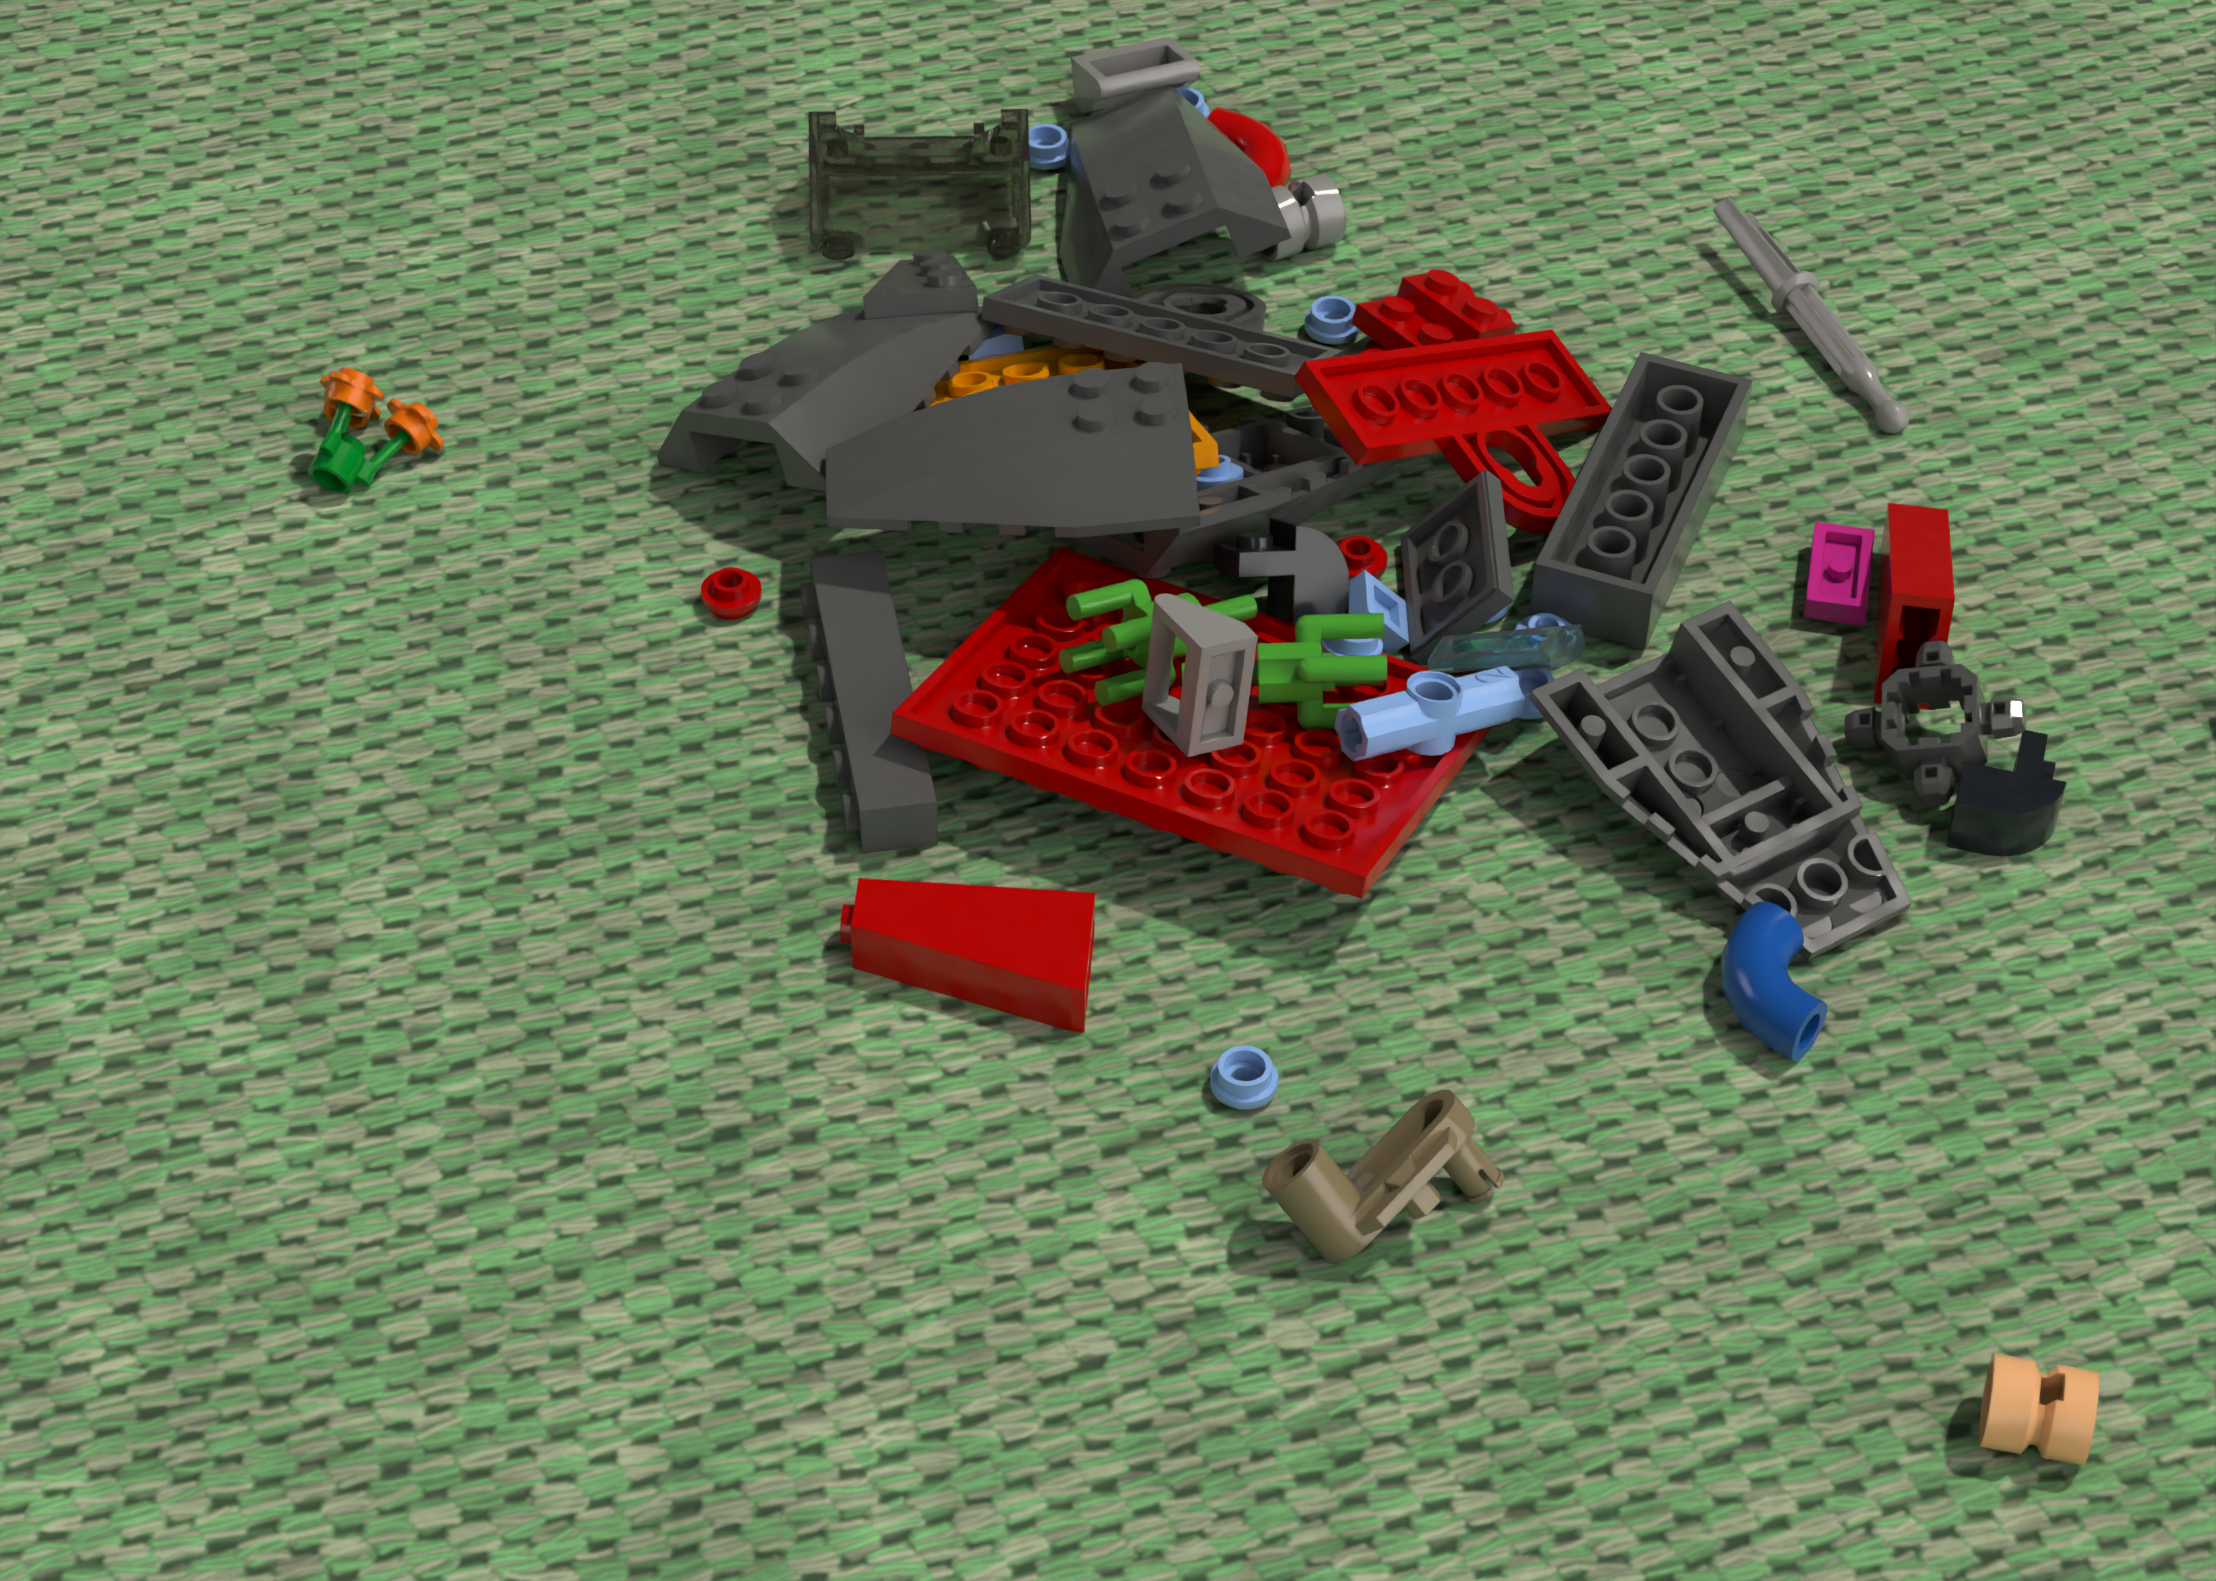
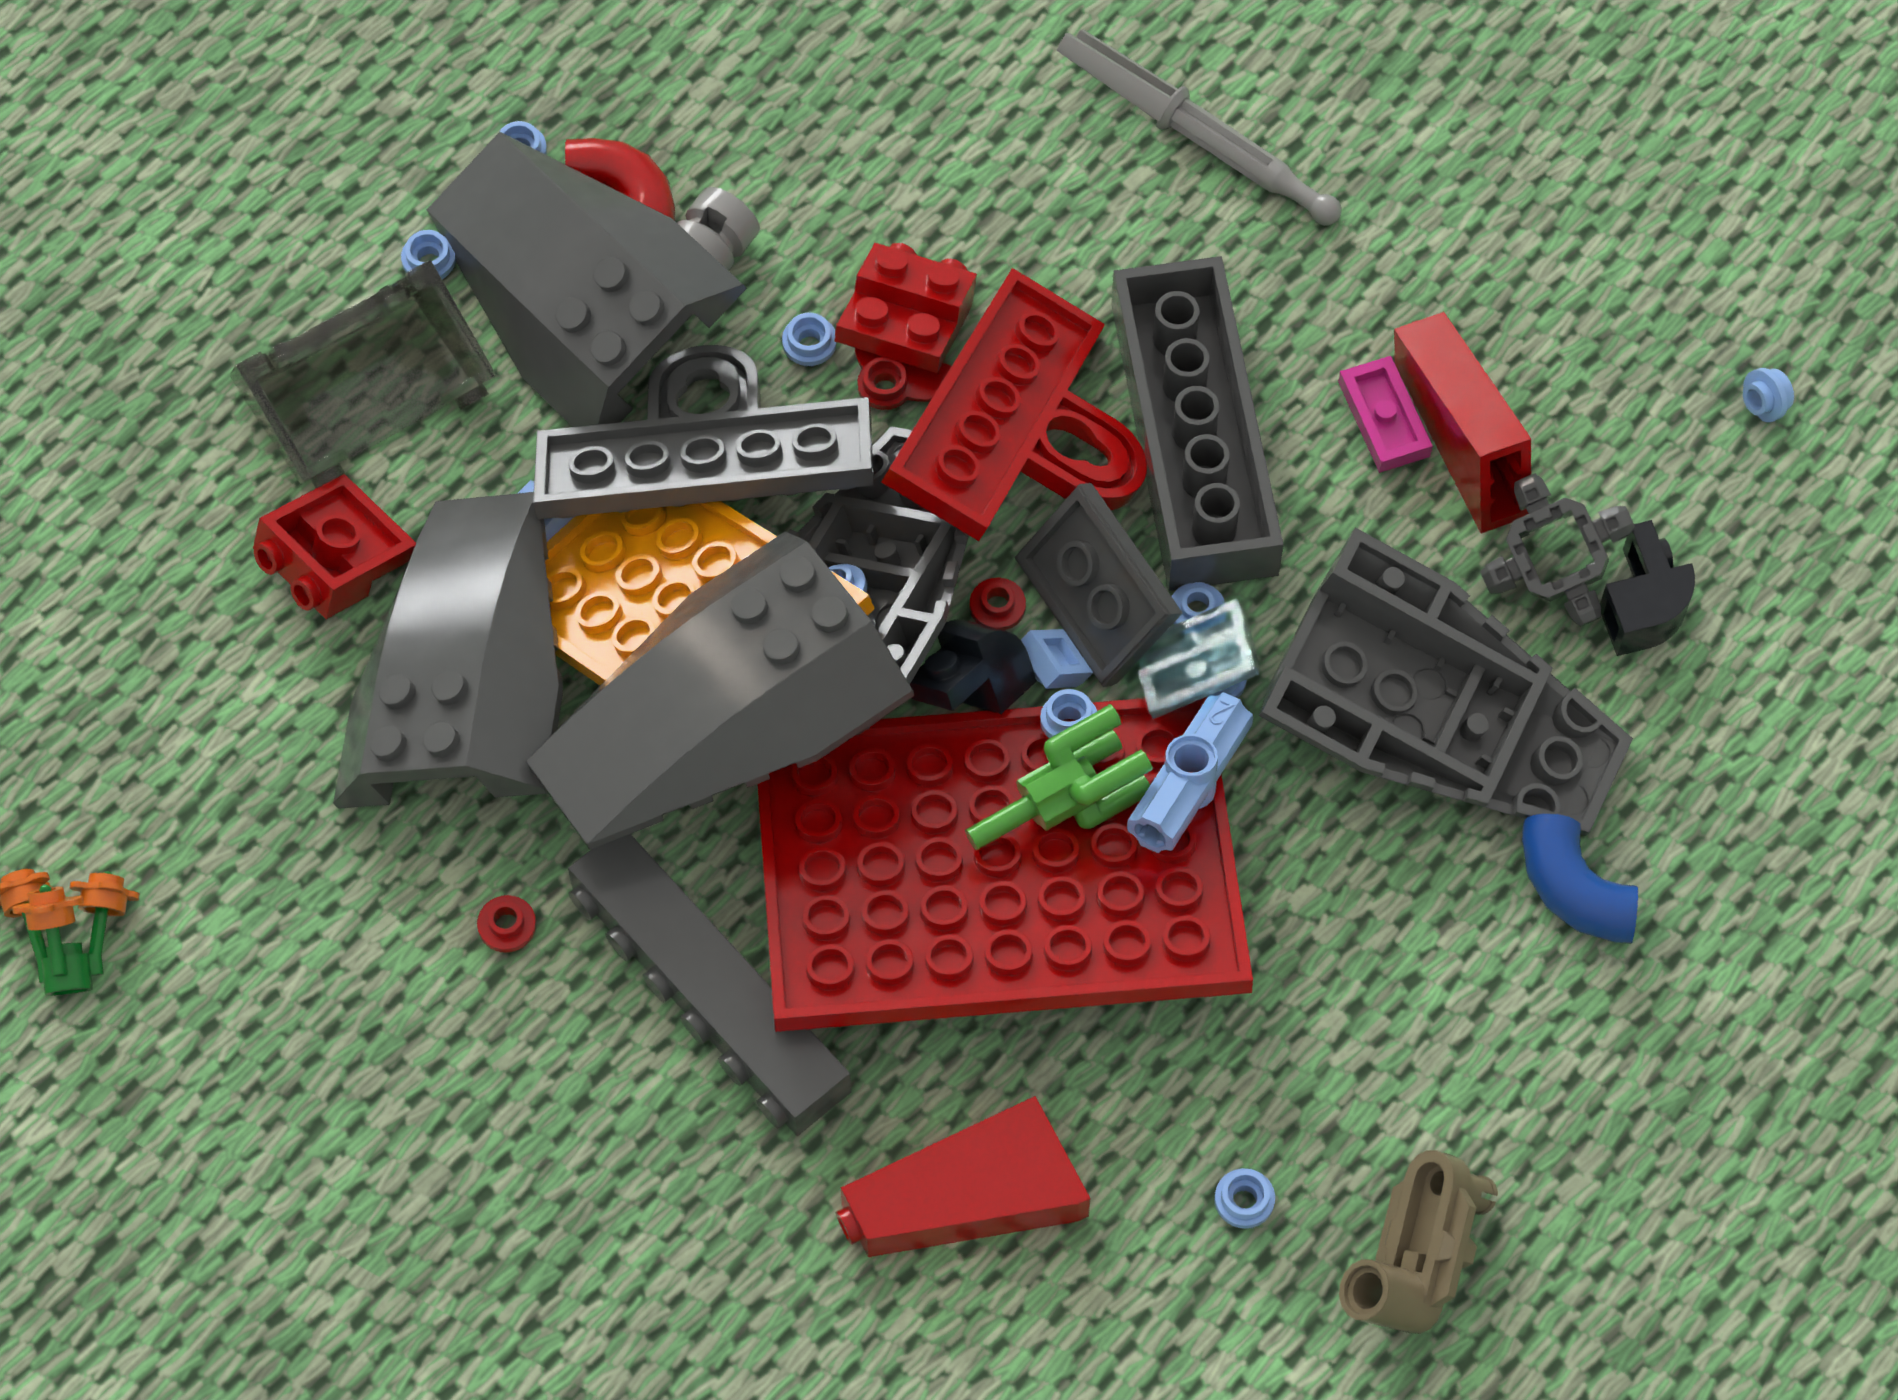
camera: 30 degrees left, 20 degrees up
(793, 282) = (330, 546): none -> red plate
(922, 287) = (454, 500): dark grey wing -> none
(1130, 70) = (459, 134): light grey tile -> none
(1131, 635) = (924, 816): bright green plant -> none
(1214, 677) = (1033, 845): light grey tile -> none

